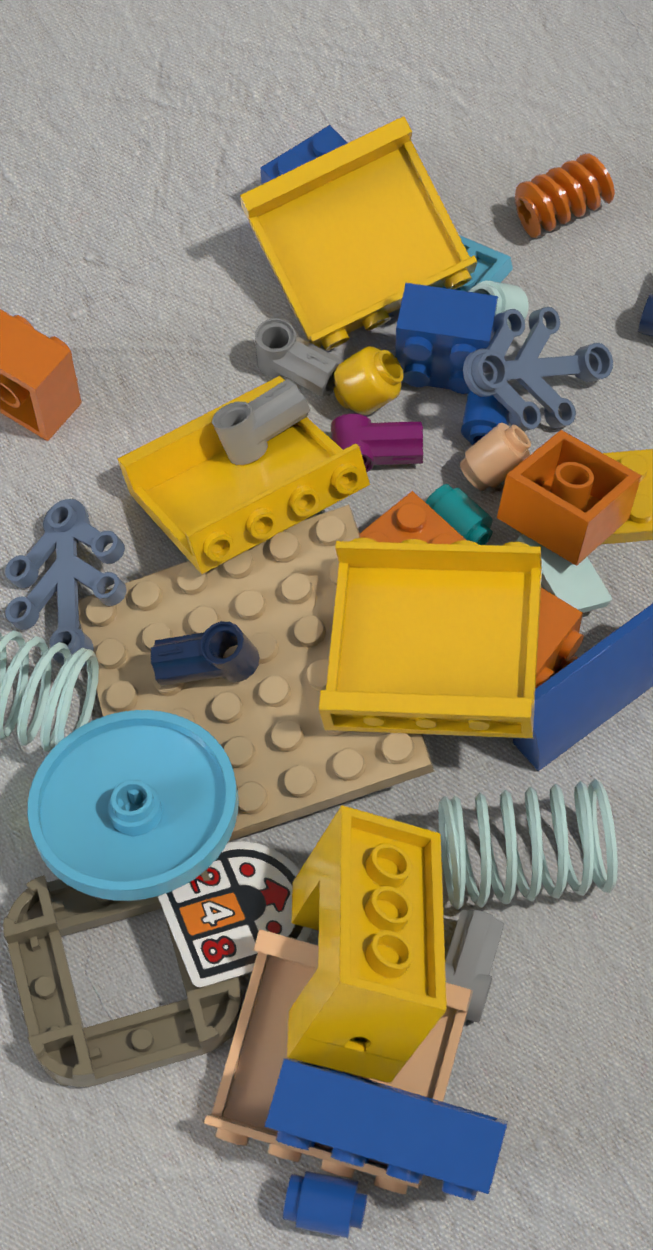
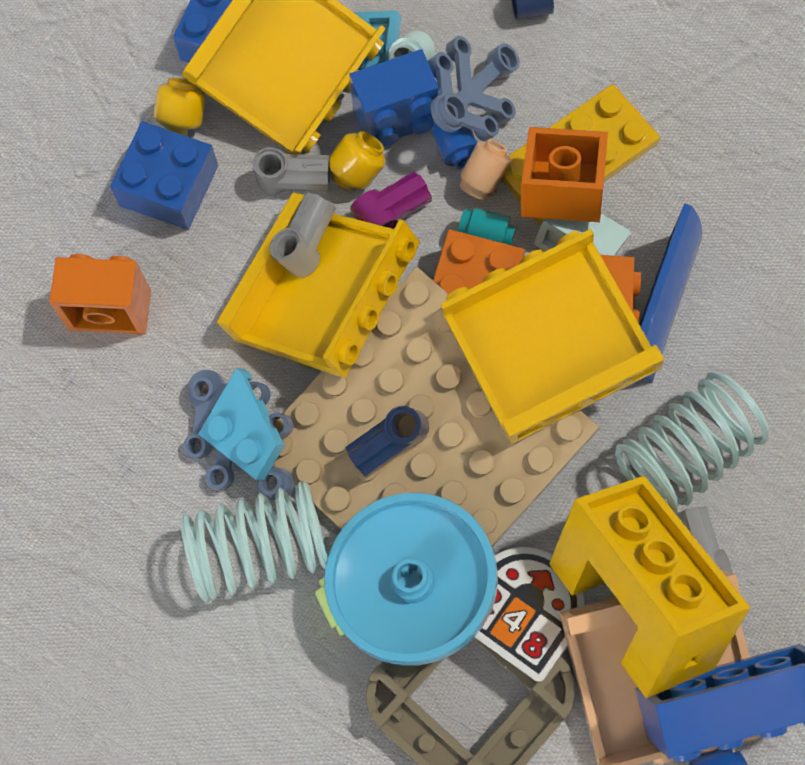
camera: 30 degrees left, 10 degrees up
(70, 570) = (242, 428): none -> medium azure wing
(166, 297) = (164, 175): none -> blue brick
(224, 239) = (179, 105): none -> yellow head

